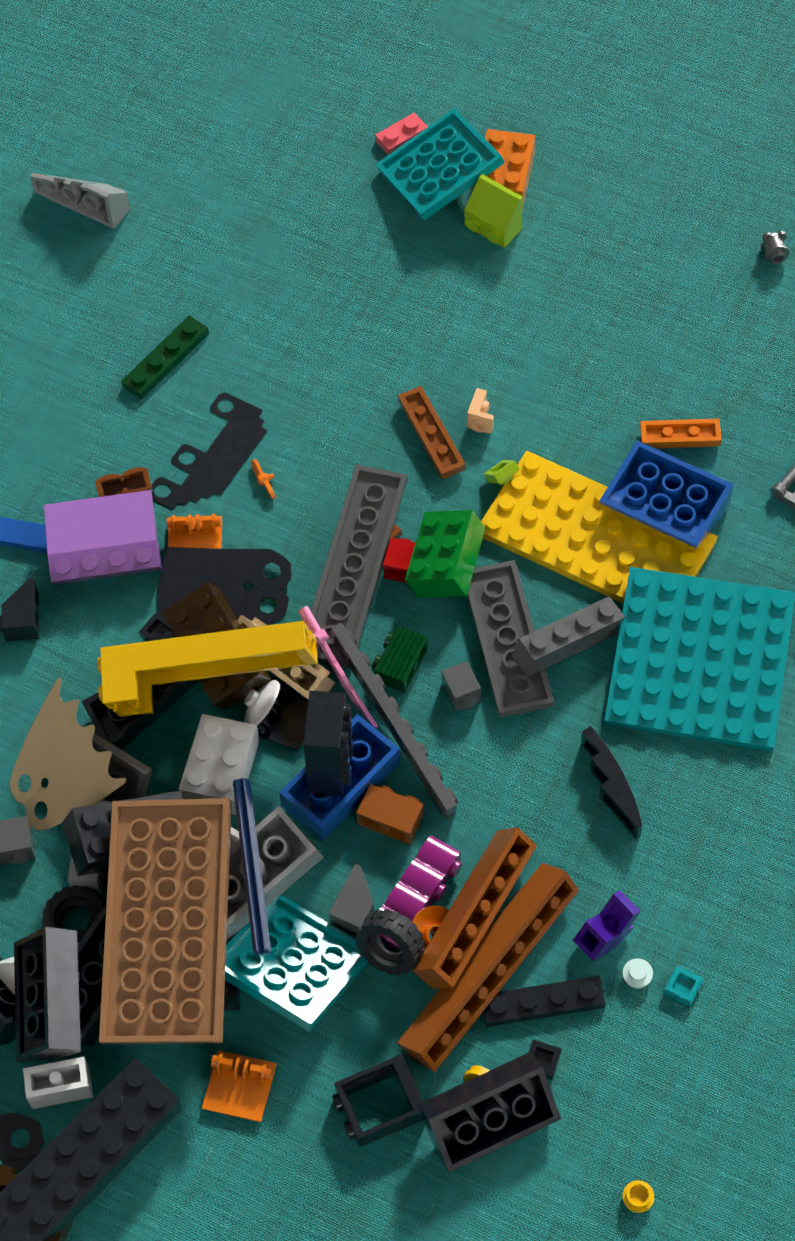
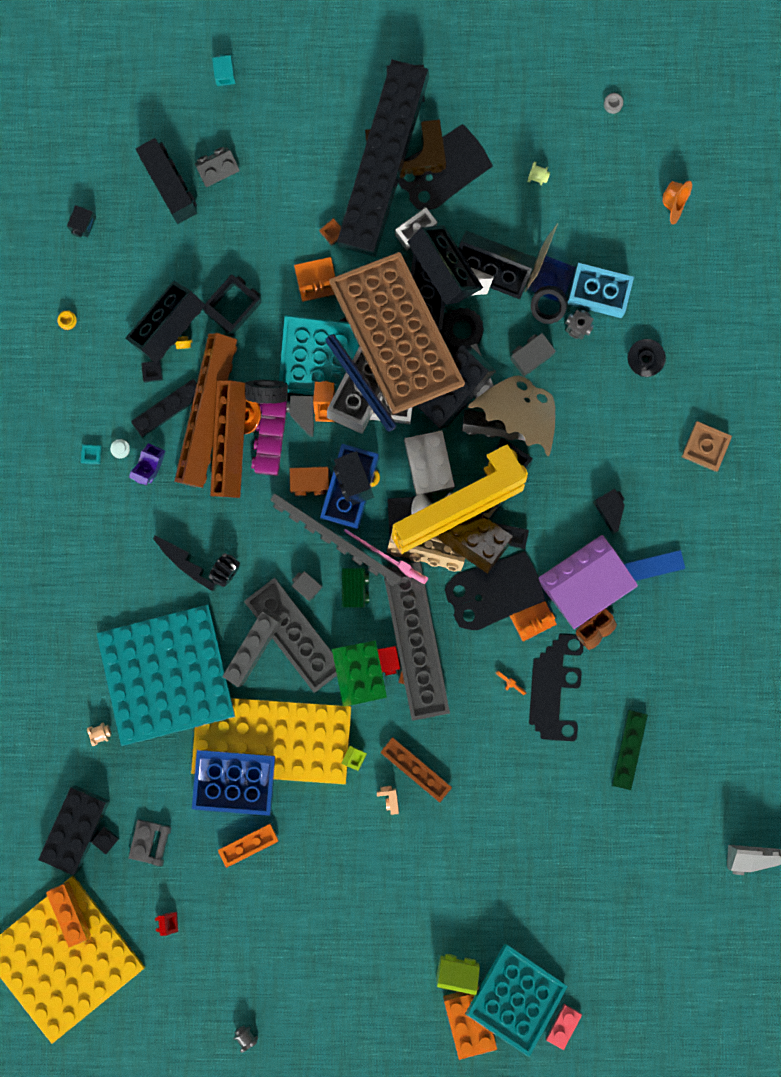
camera: 150 degrees right, 25 degrees up
(179, 1142) = (331, 231): none -> dark orange plate
(313, 902) = (323, 395): none -> orange slope
(561, 746) = (224, 570): none -> black gear

